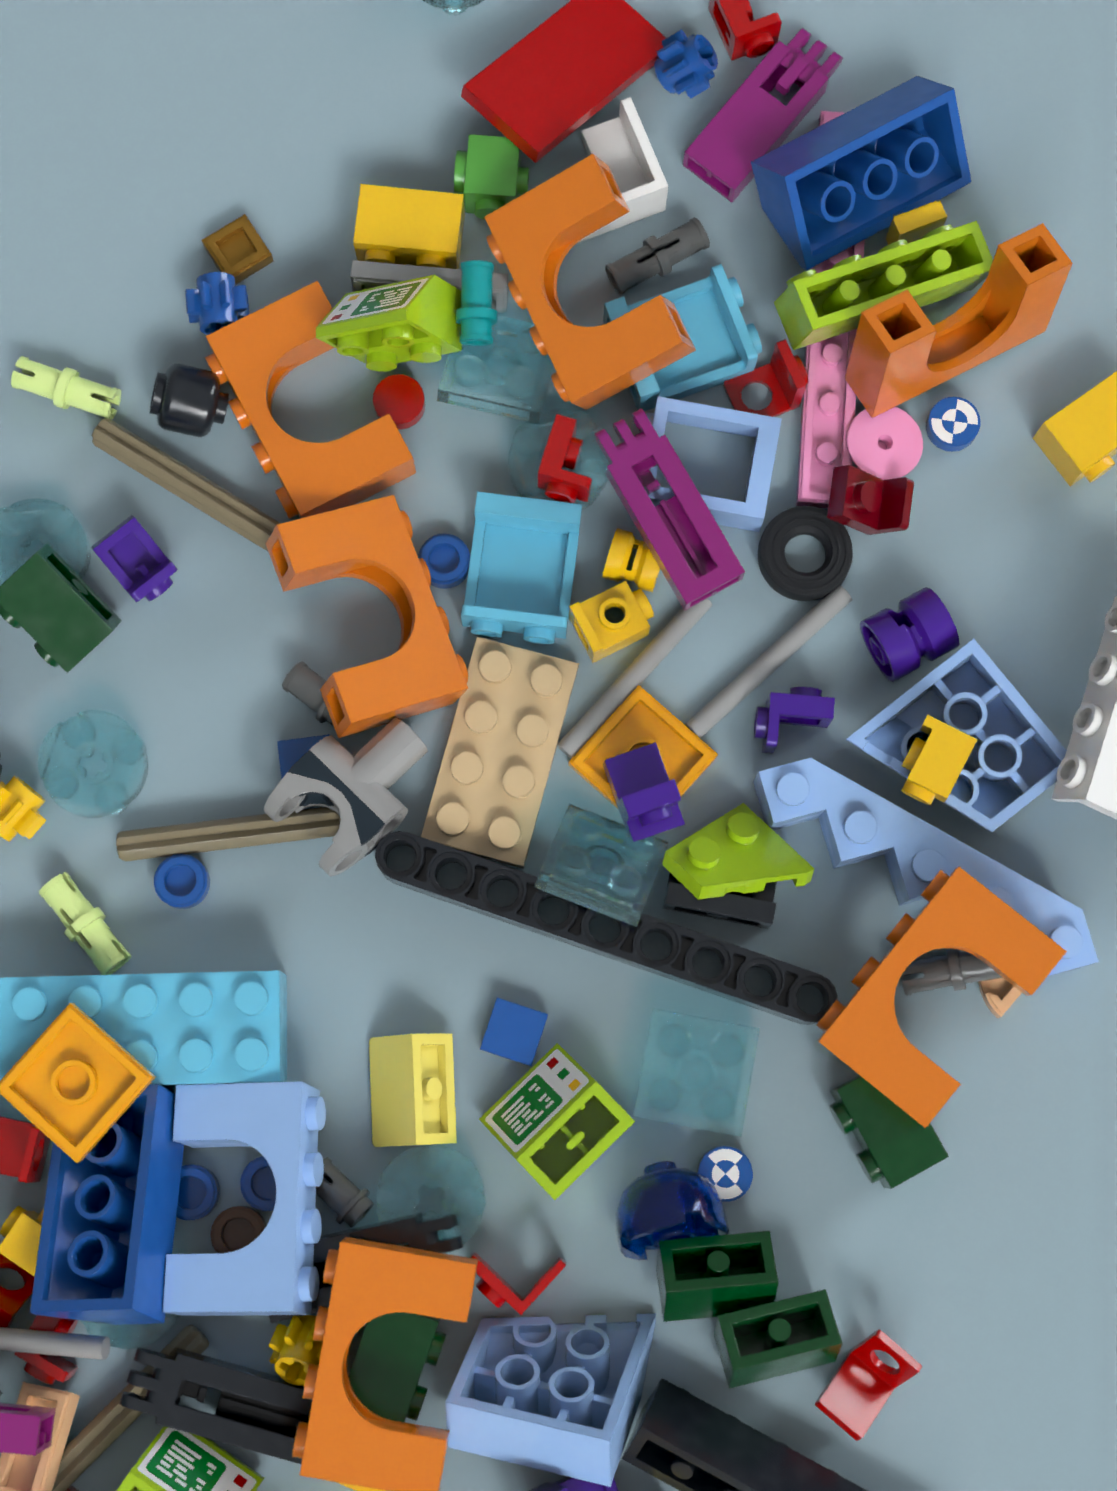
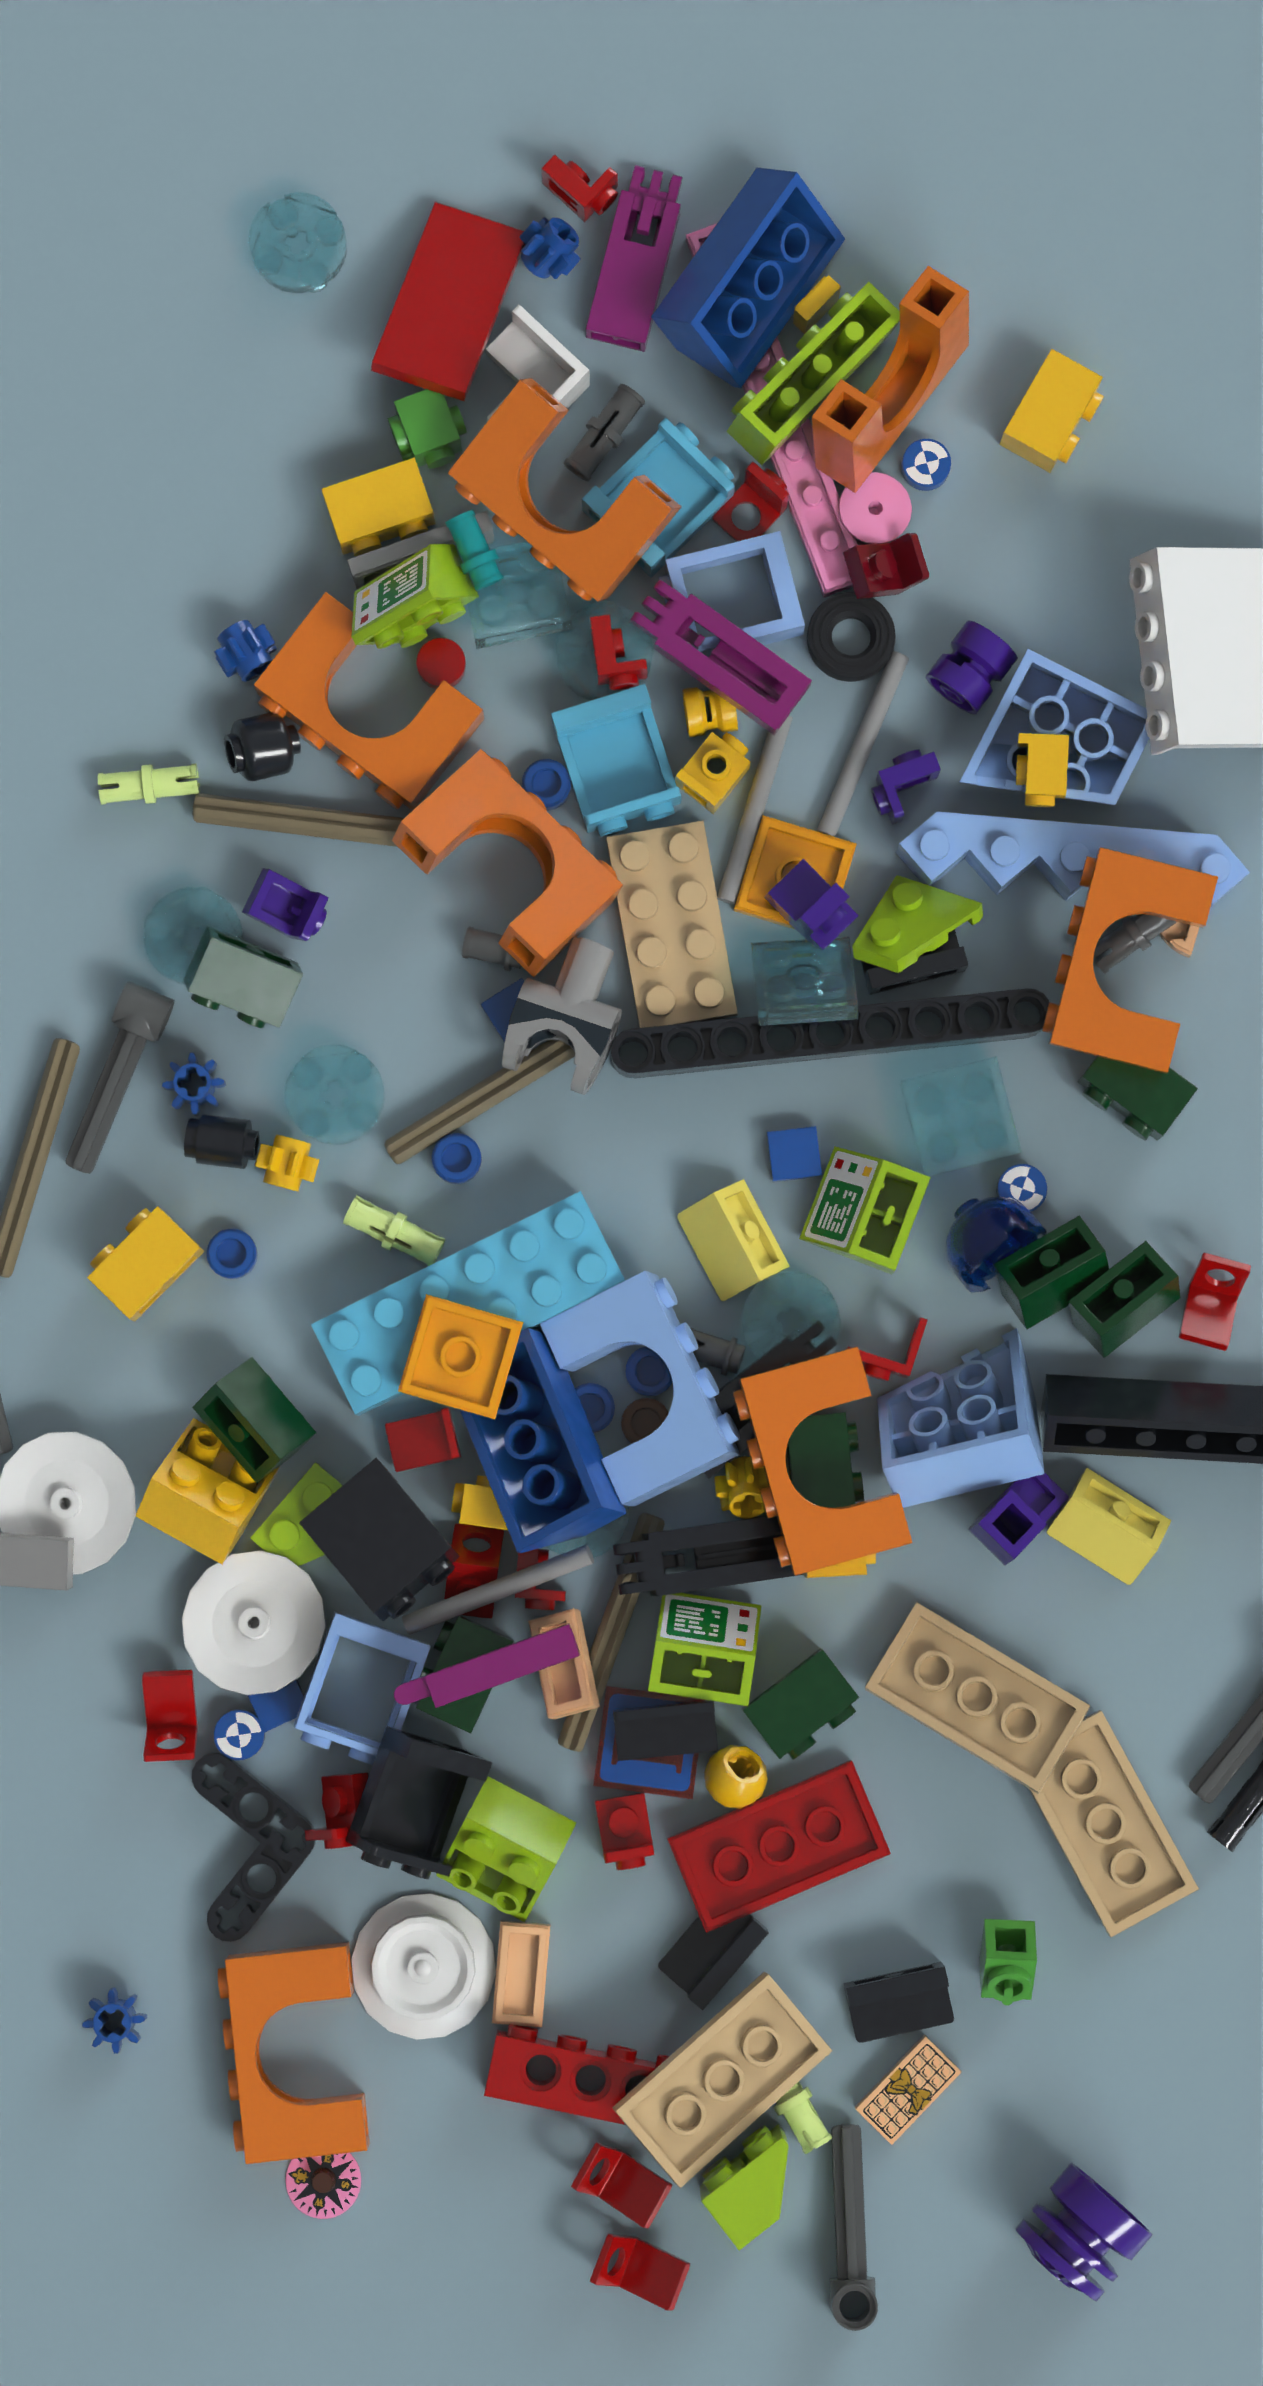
camera: 25 degrees left, 5 degrees up
(238, 249) = (235, 592): pearl gold tile -> none

